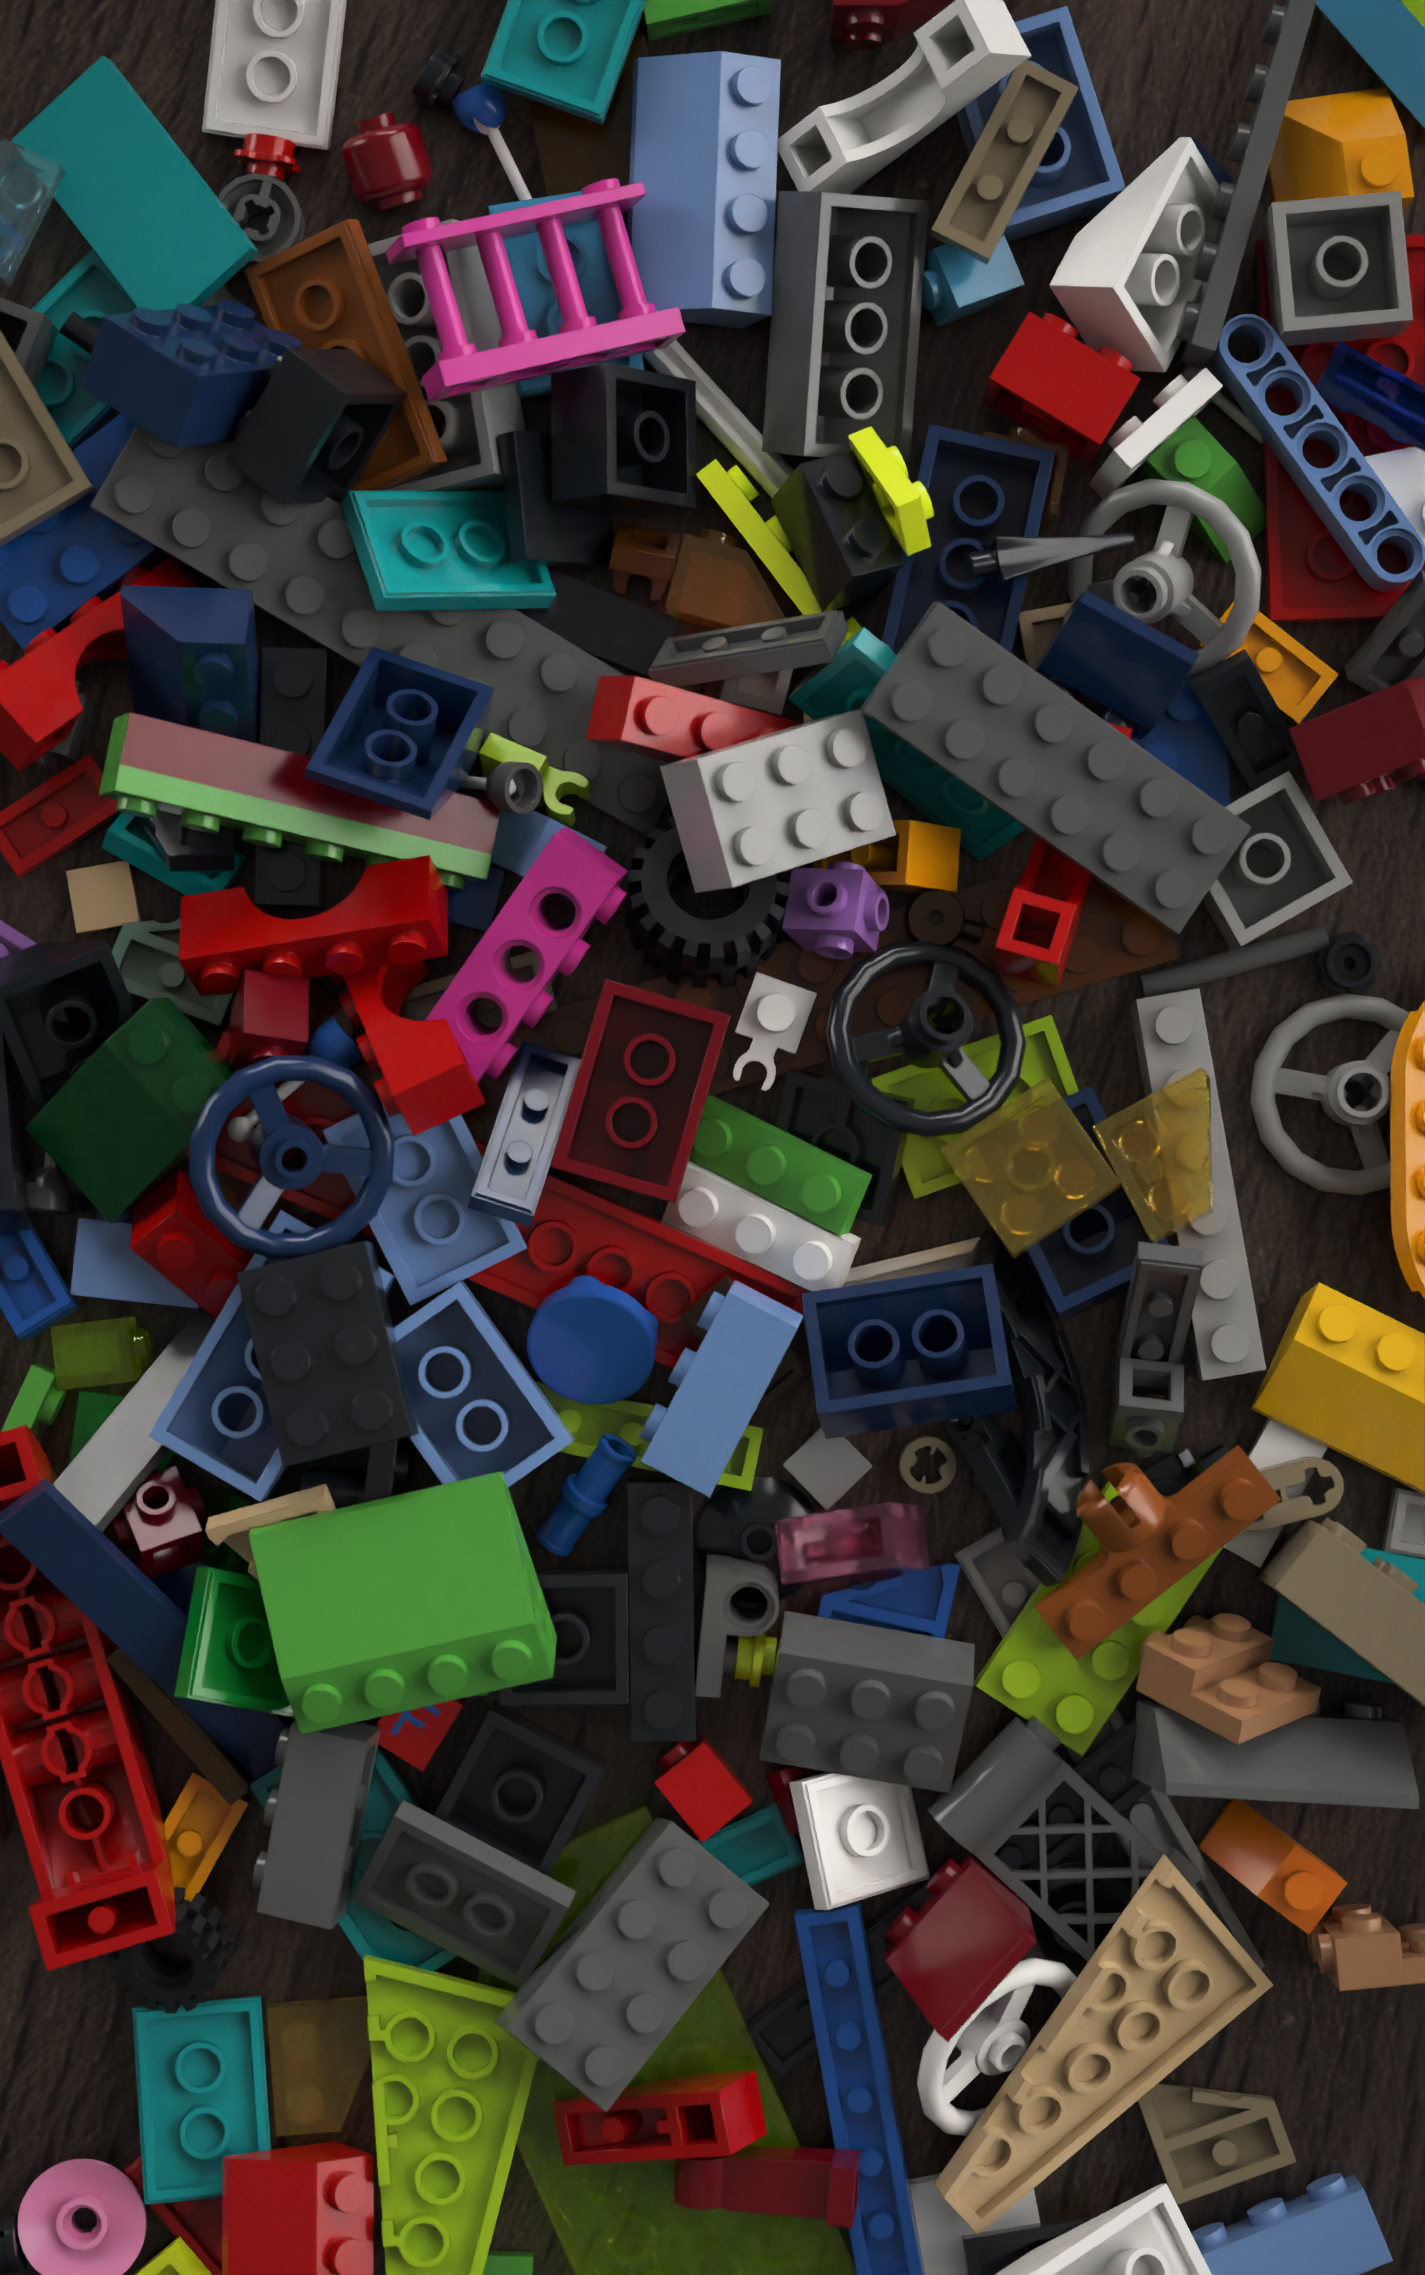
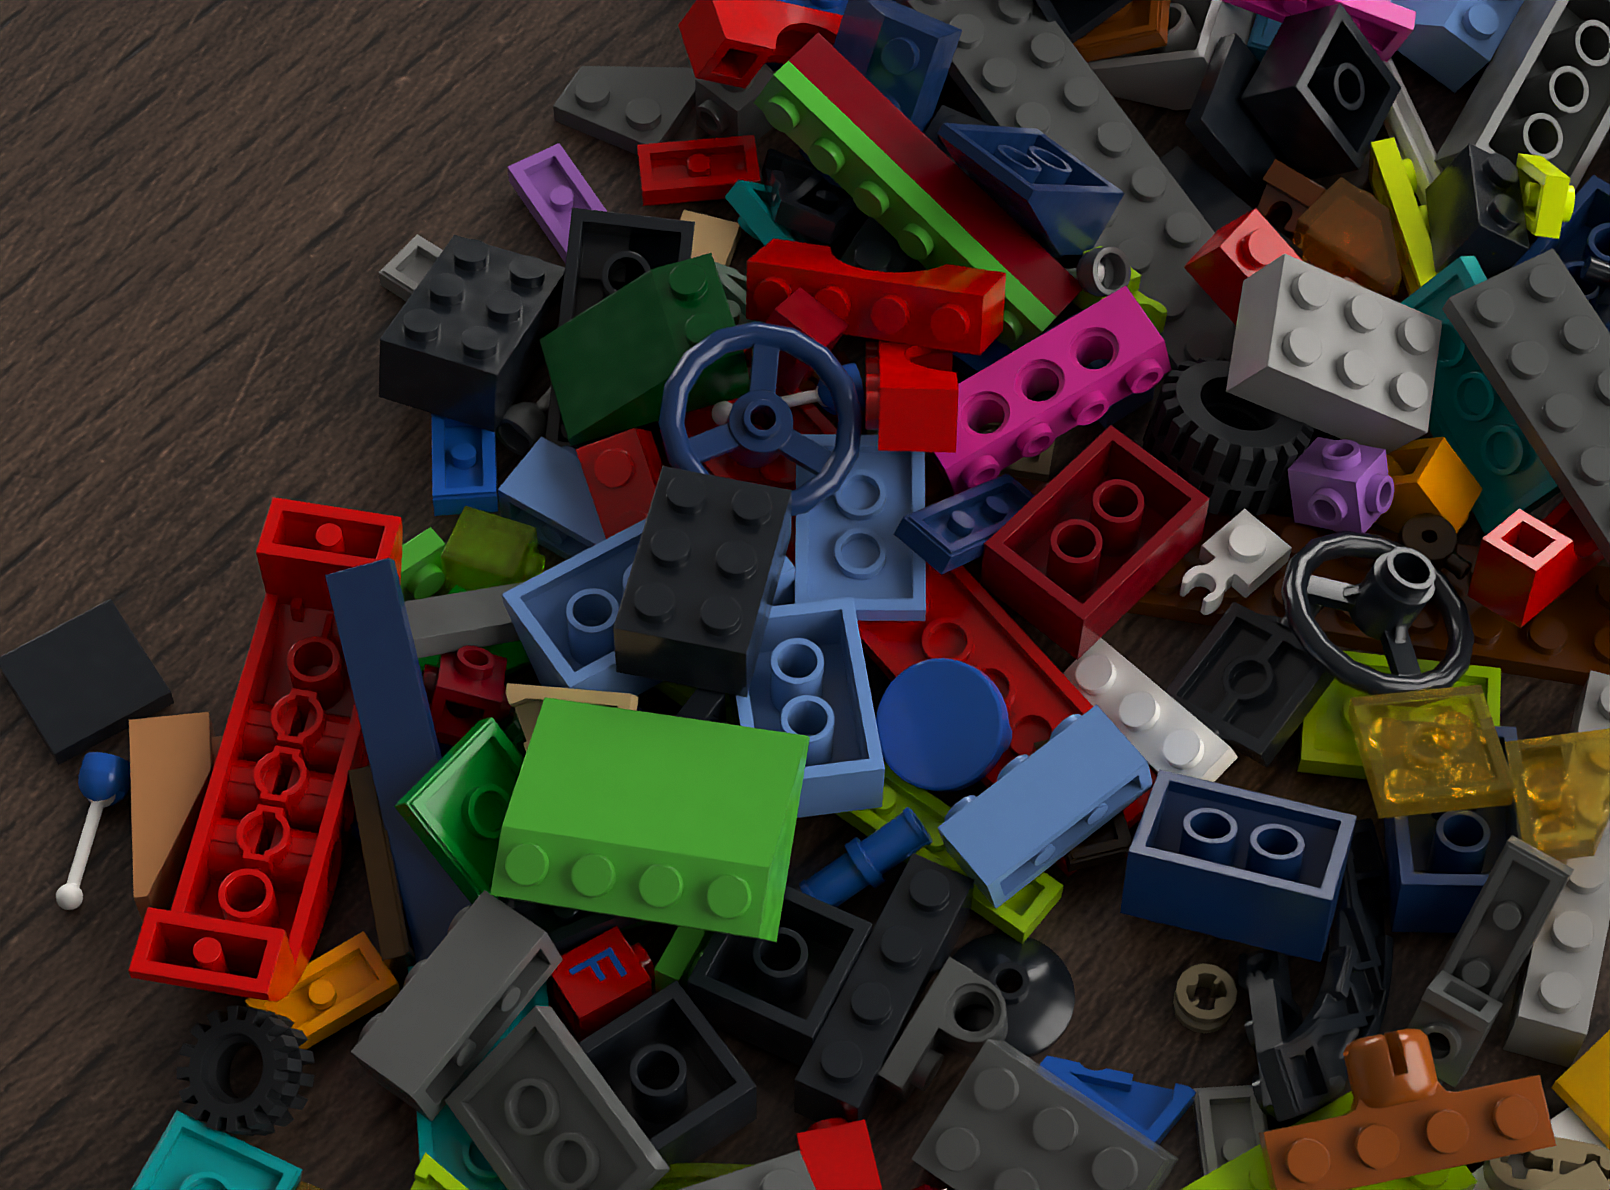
camera: 30 degrees right, 30 degrees down
(441, 552) = (1131, 99): teal tile -> none
(750, 649) = (1376, 262): dark grey tile -> none
(755, 1658) = (946, 1077): neon yellow plate -> none
(779, 1166) = (1189, 669): bright green plate -> none
(827, 1467) = (1106, 955): light grey tile -> none
(852, 1543) = (1103, 1019): clear pink slope -> none

